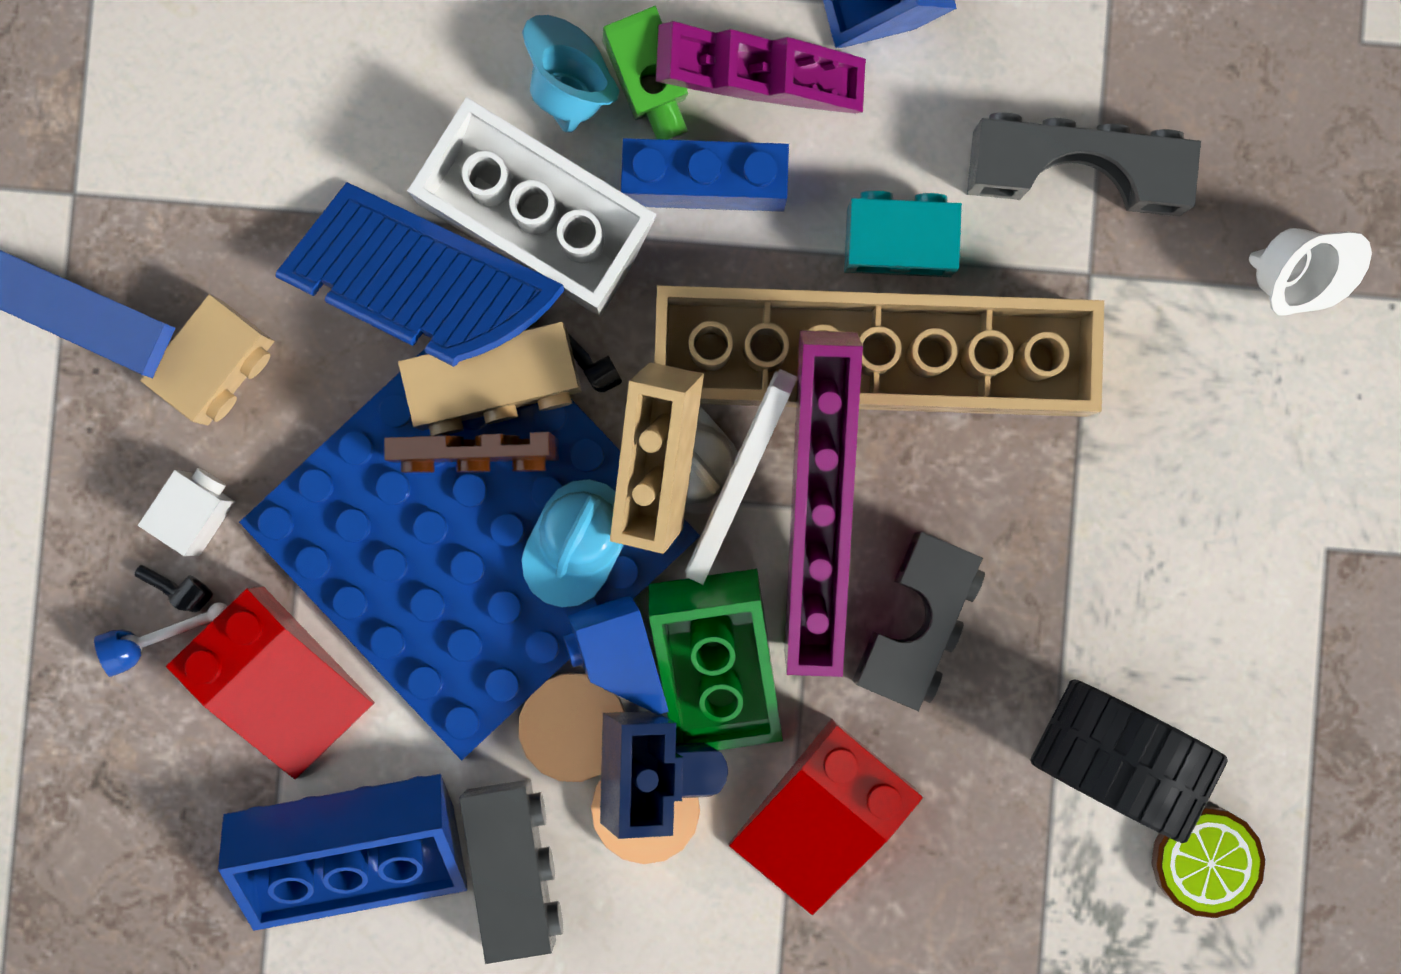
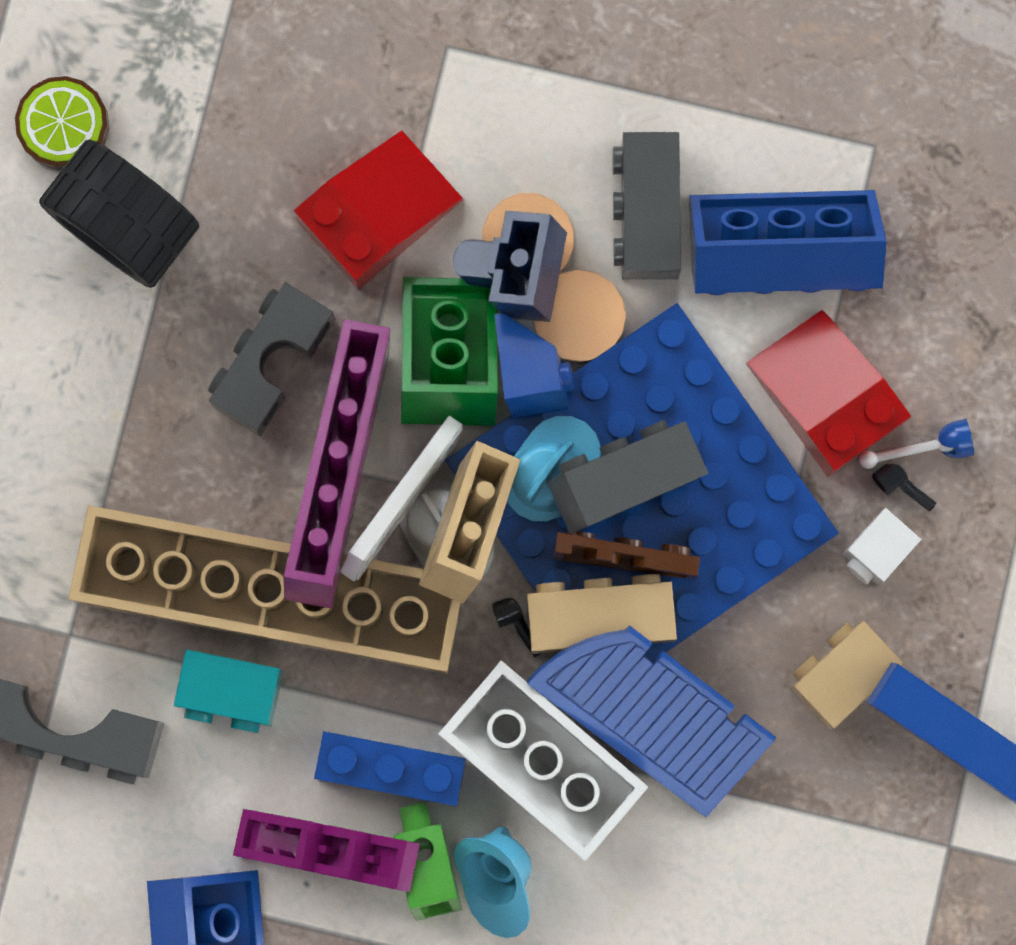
camera: 170 degrees left, 5 degrees down
(483, 541) = (626, 474): none -> dark grey brick

